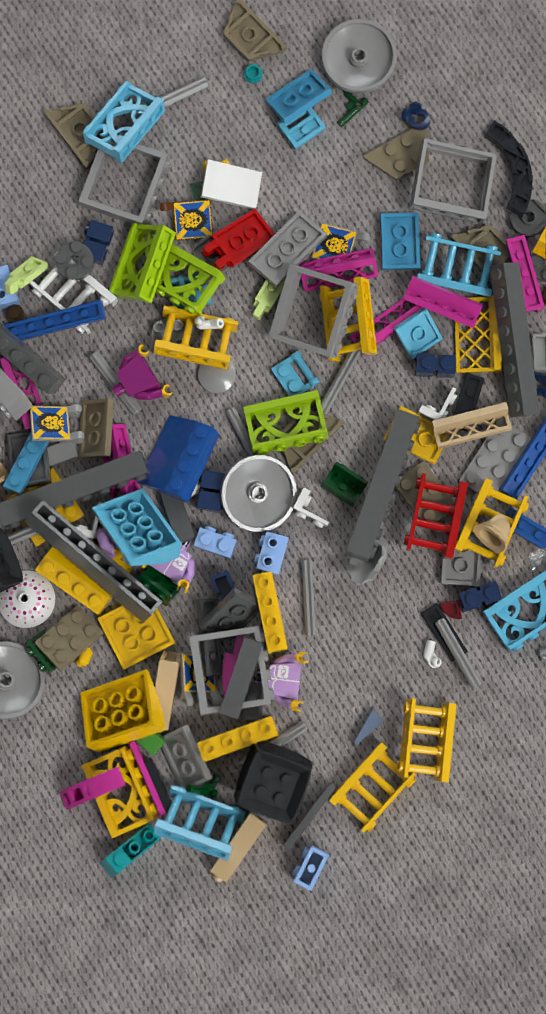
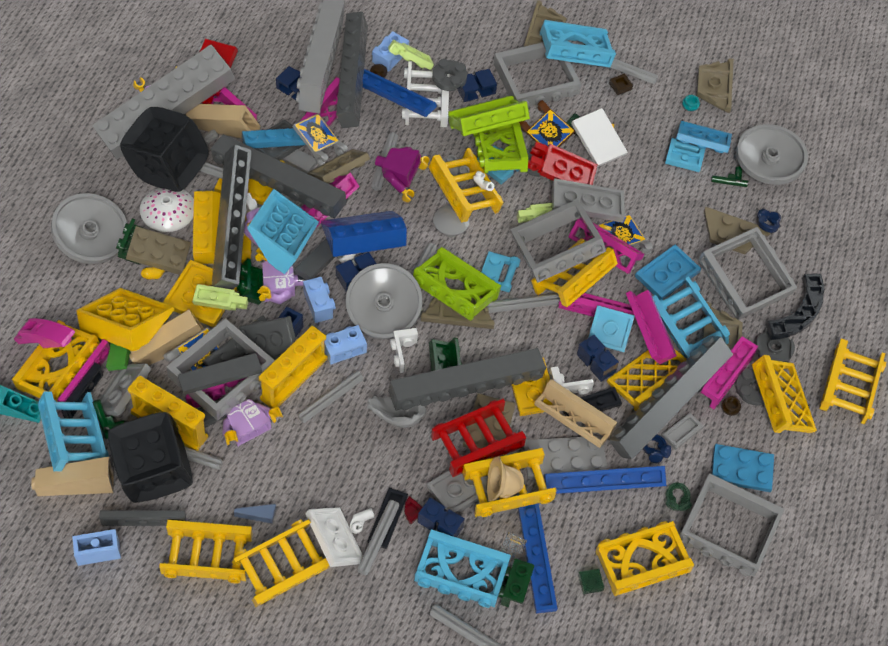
camera: 45 degrees right, 25 degrees down
(157, 624) = (219, 298): none -> yellowish green hinge
(189, 116) = (621, 84): none -> dark brown plate
(434, 685) = (334, 536): none -> white tile

